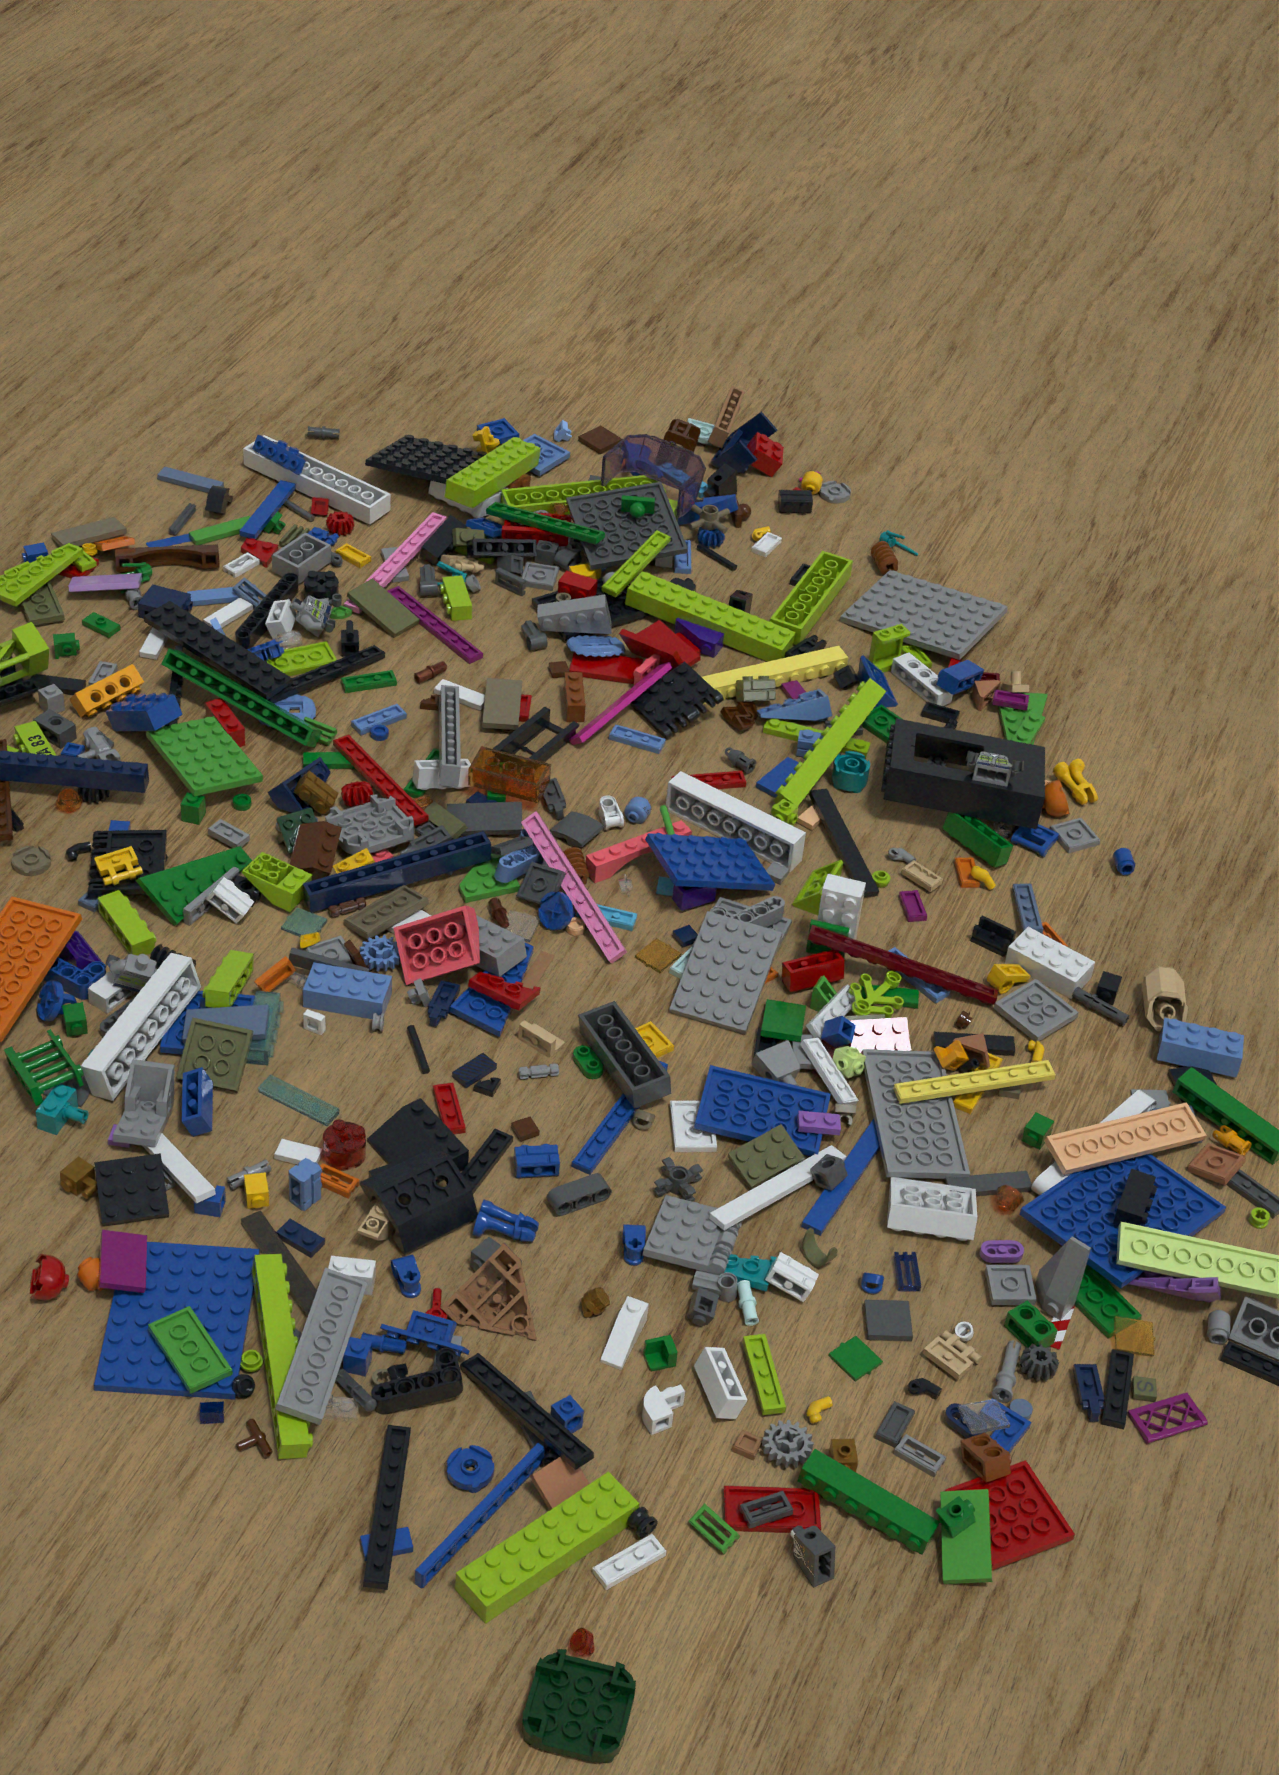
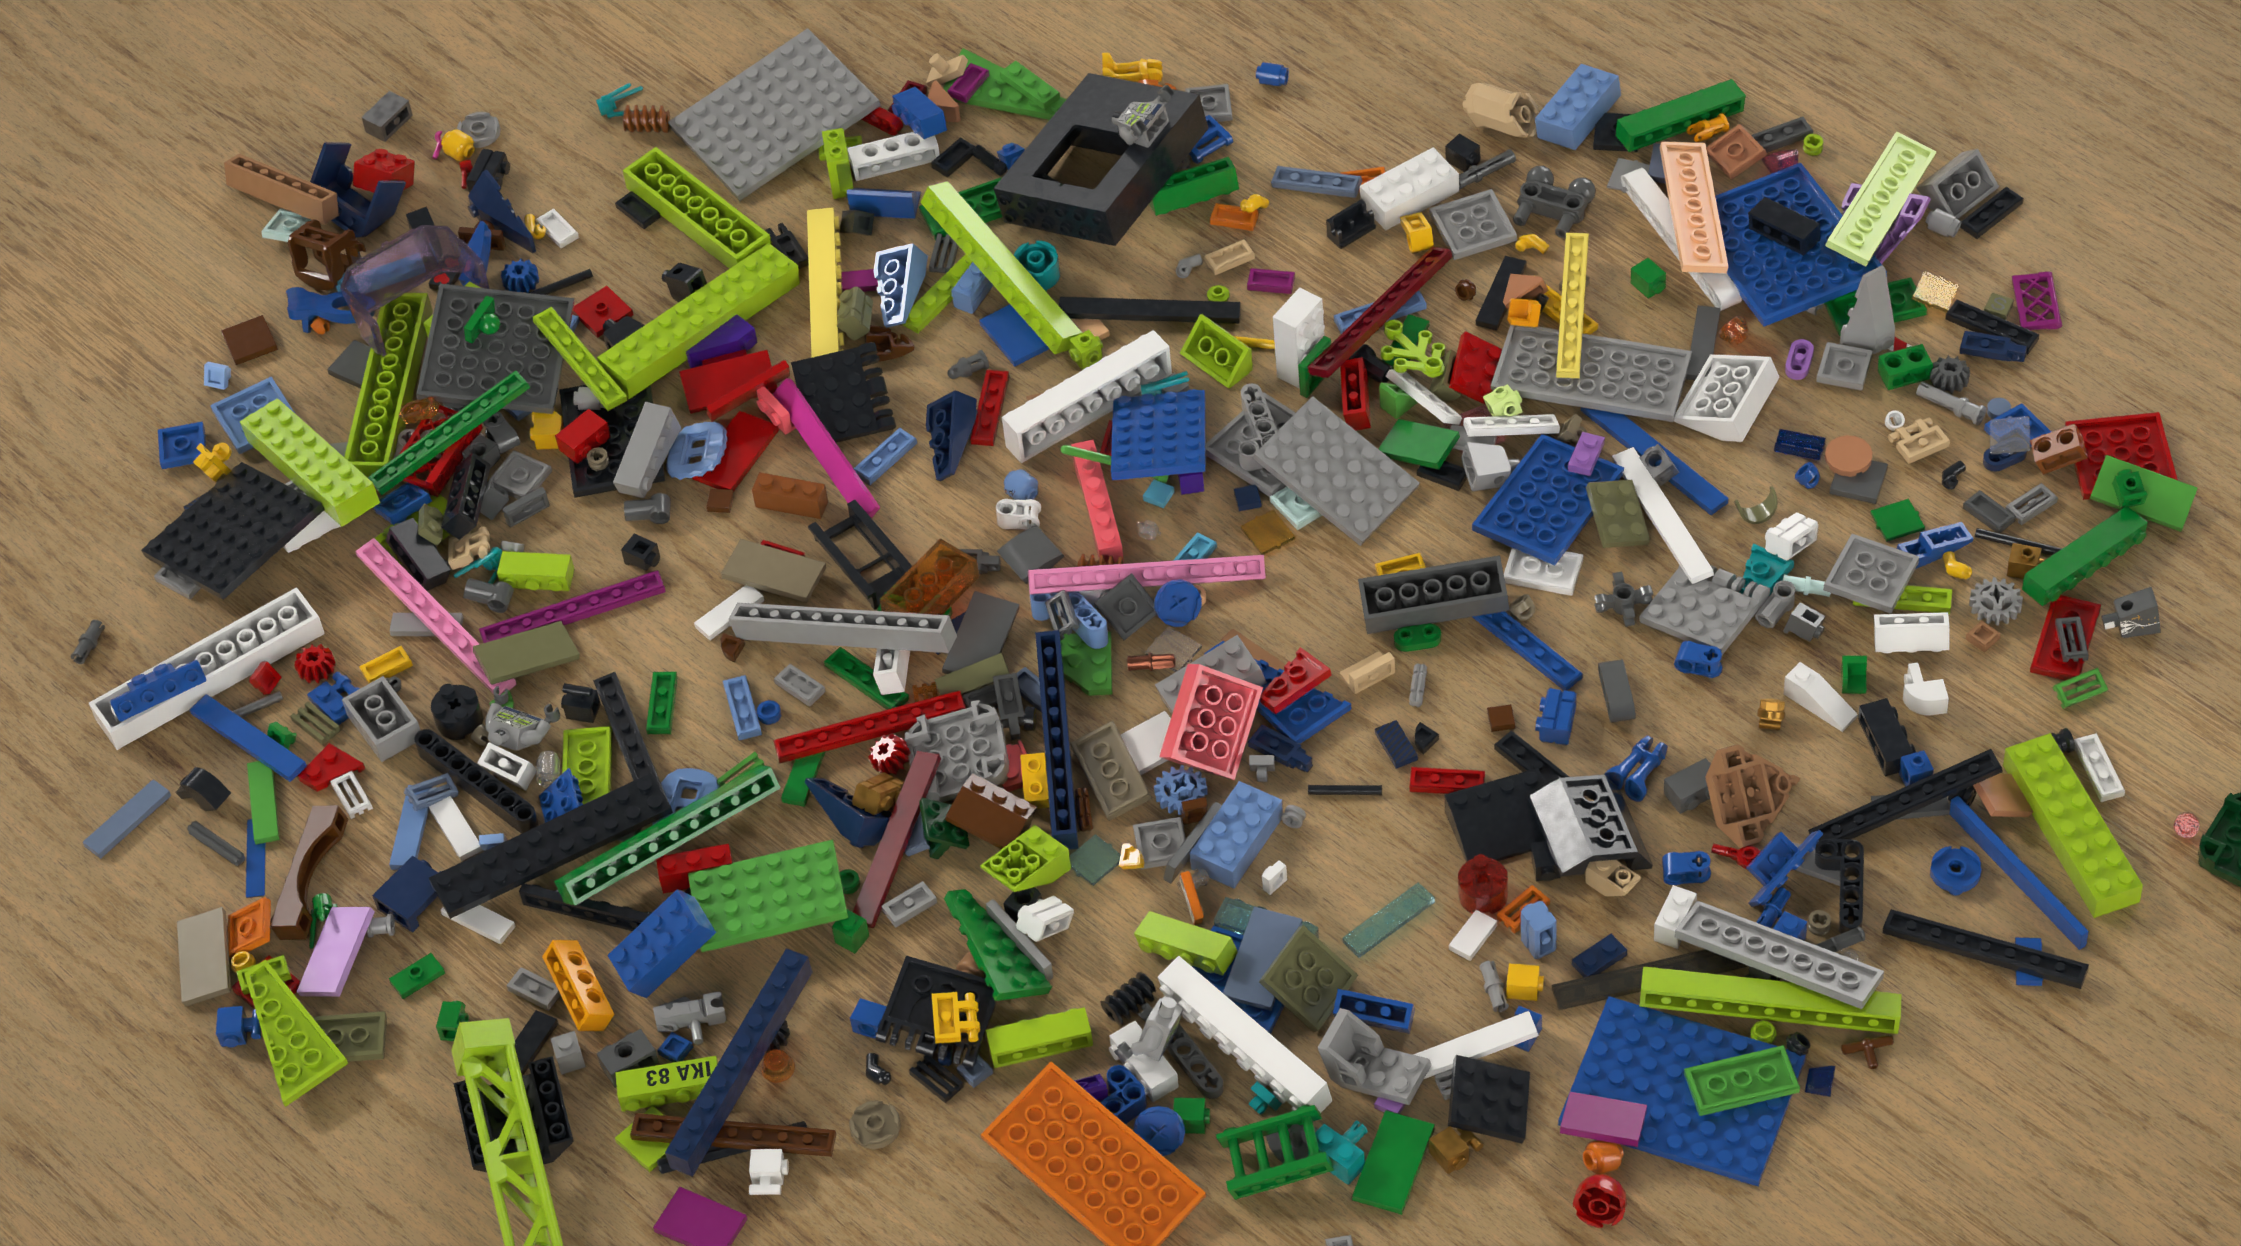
camera: 60 degrees left, 10 degrees up
(60, 1147) = (1393, 1162): none -> green tile
(75, 881) = (923, 1066): none -> black tile
(276, 810) = (896, 836): none -> dark red tile
(397, 1371) = (1821, 905): black tile -> none
(407, 740) = (799, 685): none -> light grey plate
(430, 672) = (674, 632): copper axle -> none
(491, 644) = (641, 552): none -> black brick
(601, 1386) = (1885, 734): none -> black brick
(684, 761) = (950, 425): none -> dark blue wedge
(704, 579) = (599, 308): none -> red plate
(709, 518) = (509, 263): dark tan bar -> none
(762, 512) = (489, 205): none -> dark blue wedge
(767, 860) = (1157, 386): none -> teal plant
(772, 1339) = (1871, 573): none -> light grey plate
(820, 449) = (387, 116): none -> flat silver brick
(825, 1380) = (1936, 542): none -> blue slope
(838, 1031) = (1466, 396): blue brick -> none
(853, 972) = (1375, 367): none -> black piece
(868, 1449) = (2009, 540): none -> black bar
(905, 1303) = (1848, 455): none -> nougat tile
(1087, 1043) = (1543, 198): none -> dark grey piece
(1223, 1195) = (1781, 160): none -> clear pink slope

